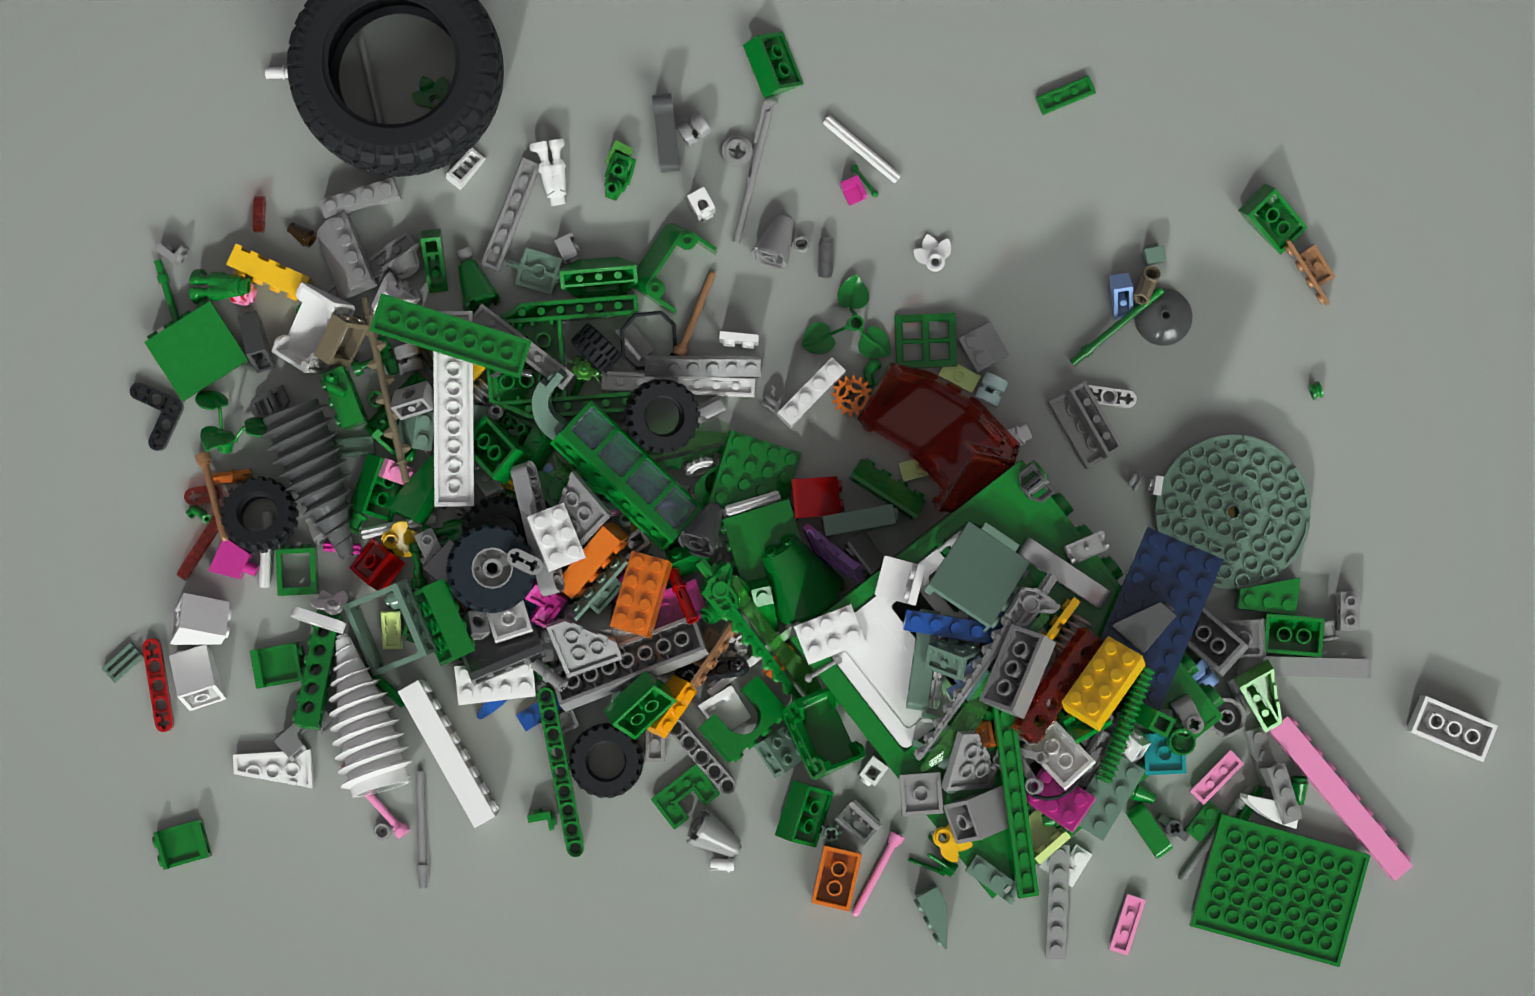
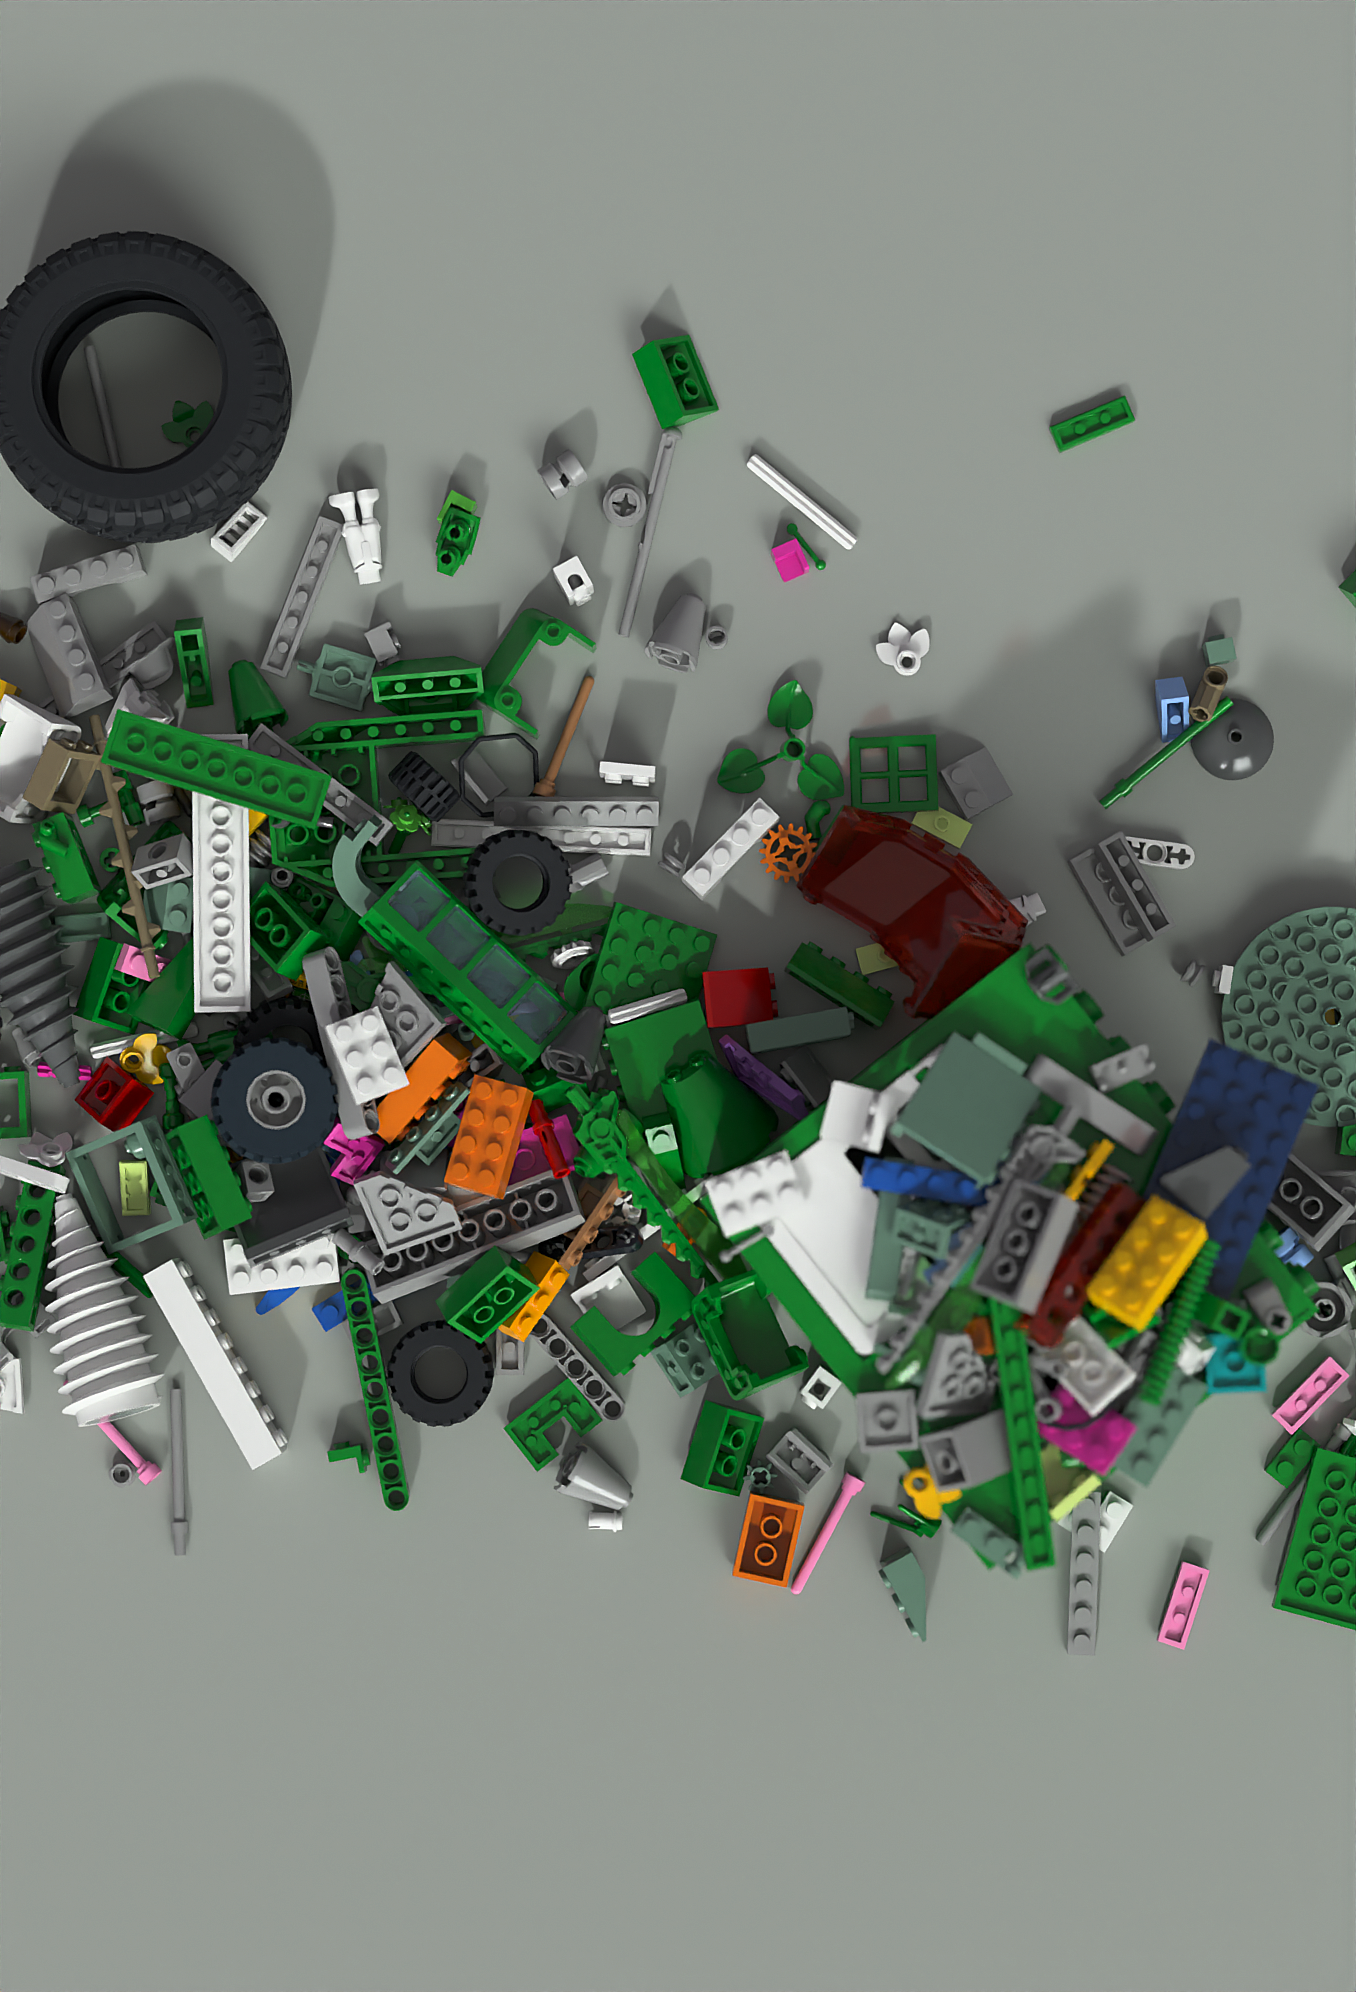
camera: 10 degrees right, 0 degrees up
(356, 522) = (85, 1034): green bush -> none
(465, 253) = (237, 652): light grey hinge -> none
(510, 623) = (302, 1178): white plate -> none
(526, 557) = (324, 1083): light grey beam -> none
(666, 132) = (523, 479): dark grey beam -> none
(825, 257) = (750, 656): flat silver piece -> none
(994, 383) = (991, 834): light aqua wheel -> none
(1143, 794) = (1205, 1420): green cone -> none
(1149, 830) = (1214, 1471): green beam -> none
(1172, 827) = (1247, 1466): dark grey piece -> none

